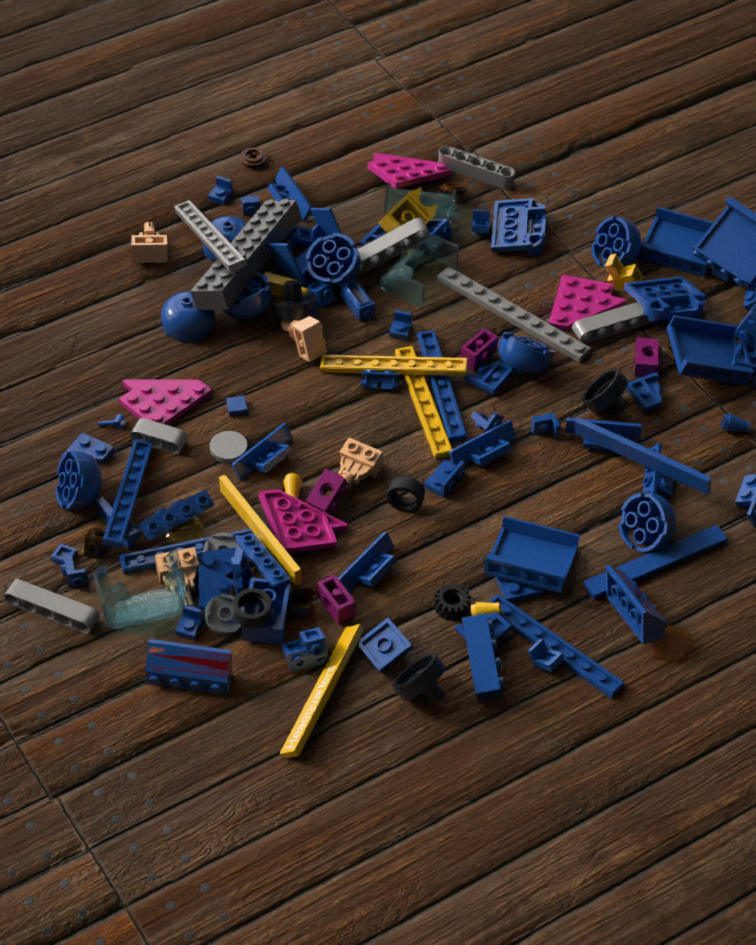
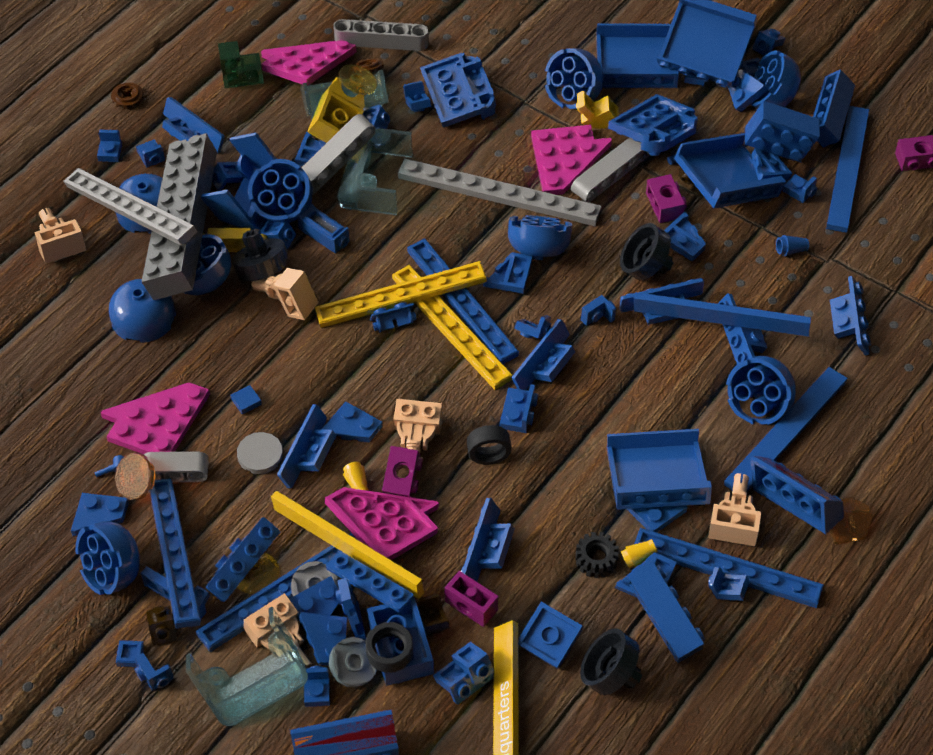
camera: 20 degrees left, 5 degrees up
(52, 606) = (145, 724): light grey beam -> none
(125, 432) = (134, 476): none -> clear orange tile
(310, 448) = (353, 424): none -> blue wing
(349, 162) = (237, 68): none -> clear green brick
(401, 325) = (385, 244): blue bracket -> none
(436, 194) = (357, 79): none -> clear yellow dish
(479, 348) = (487, 244): magenta brick -> none
(577, 609) = (735, 519): none -> light nougat brick

